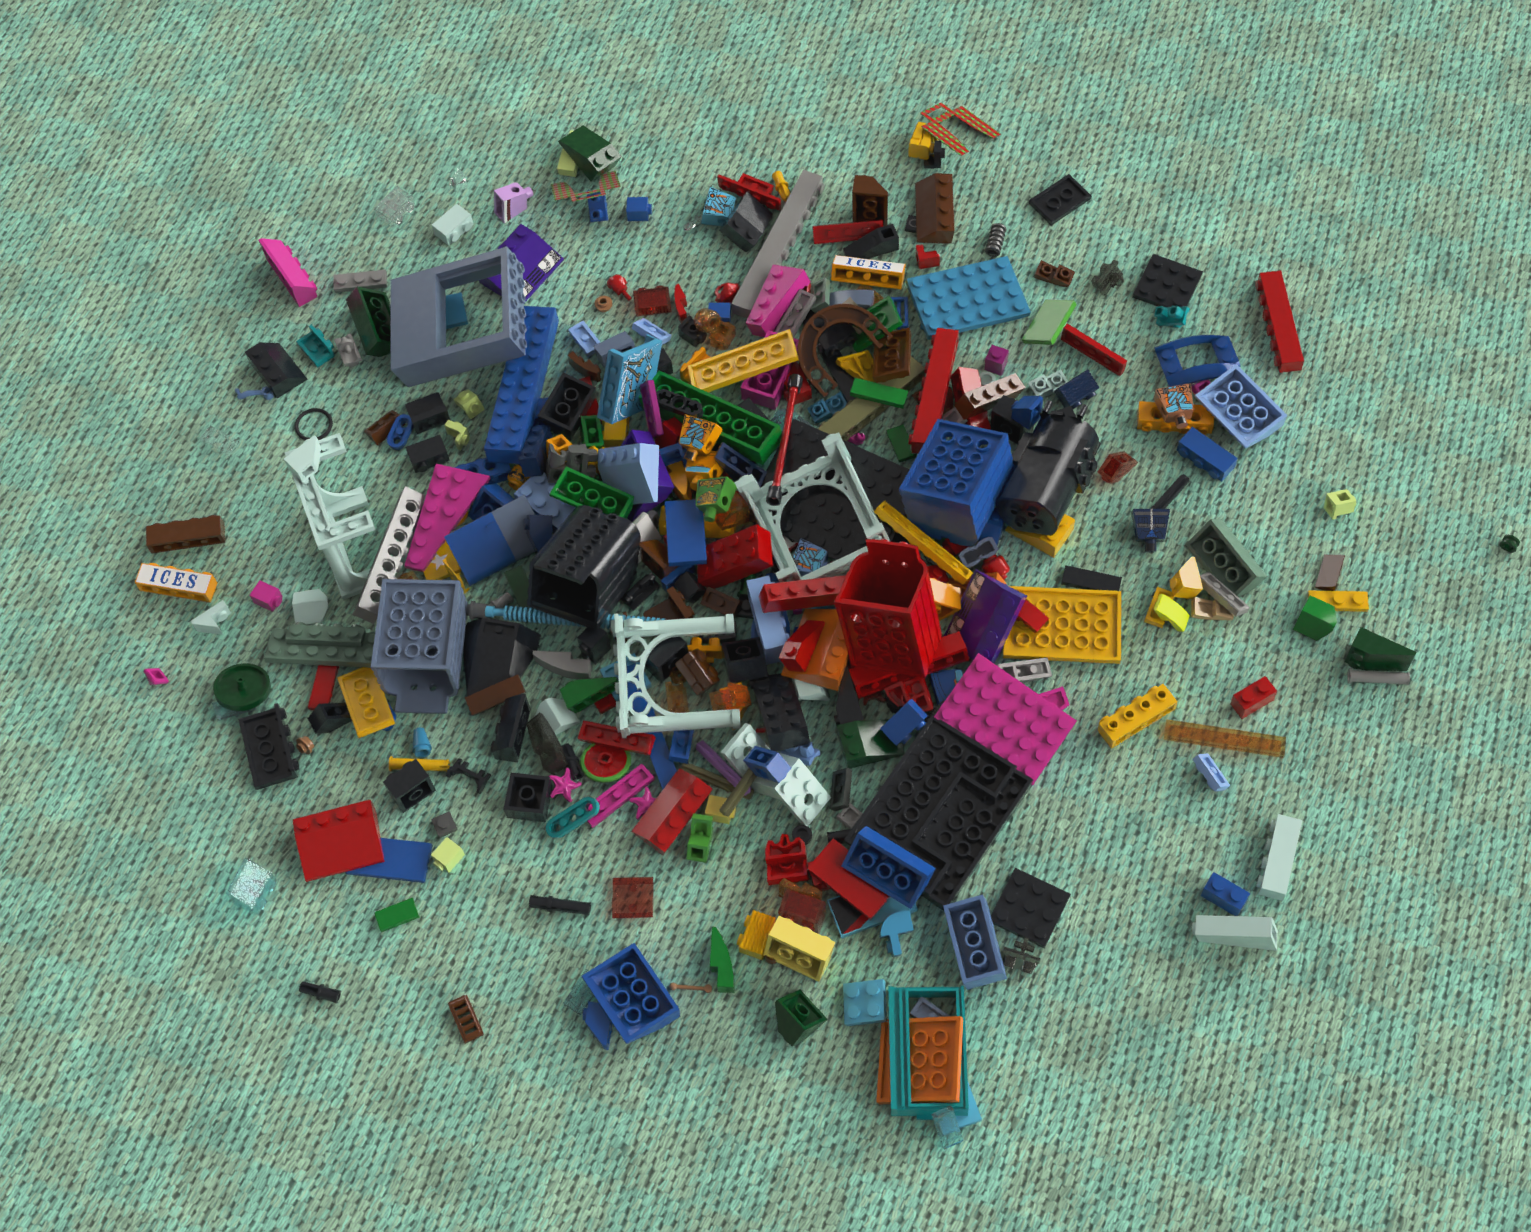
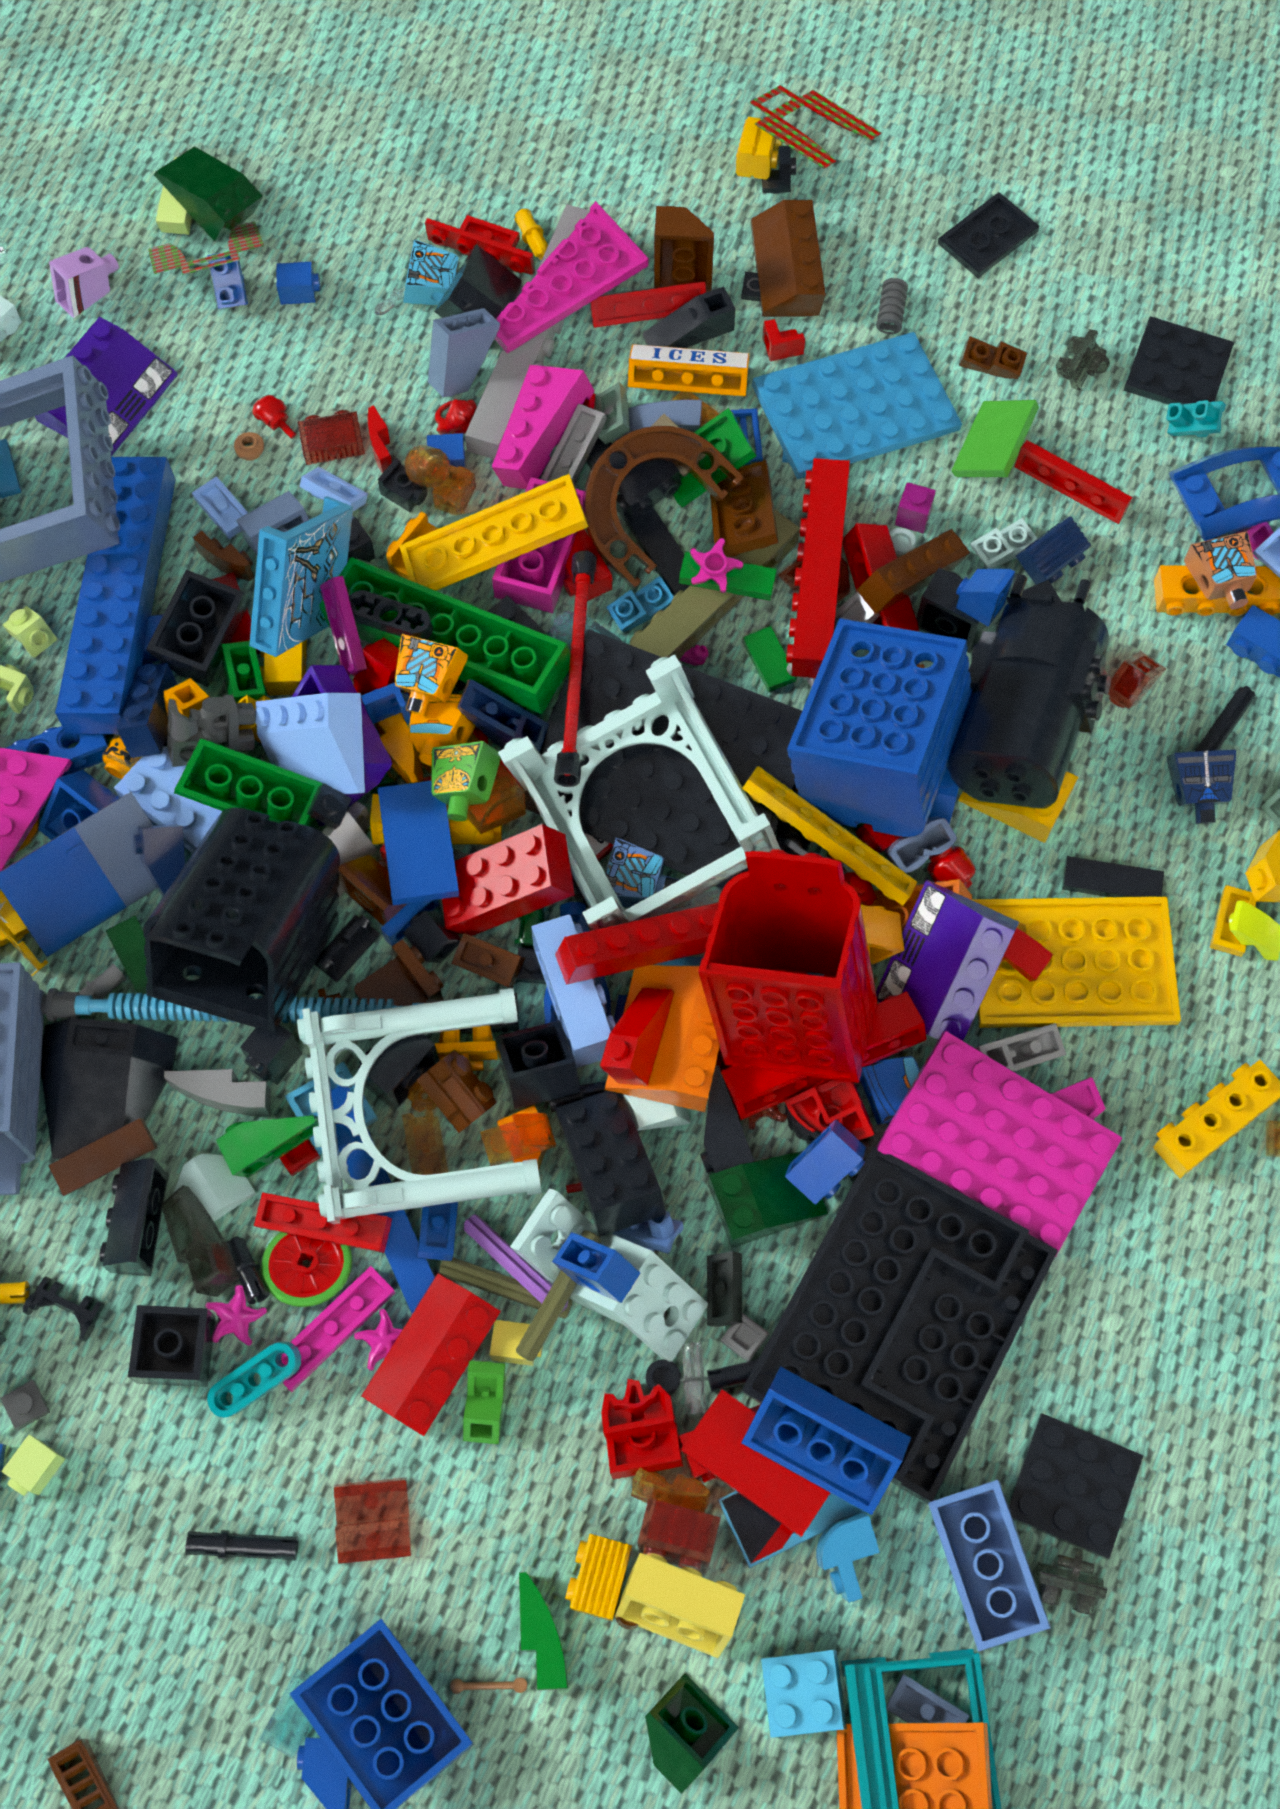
camera: 10 degrees left, 5 degrees up
(636, 508) = (329, 806): none -> black plate
(732, 253) = (459, 350): none -> sand blue slope
(804, 212) = (574, 274): none -> dark pink wing
(819, 835) = (694, 1379): none -> clear axle
(858, 365) = (685, 528): yellow wing -> none
(871, 386) = (714, 565): none -> dark pink animal

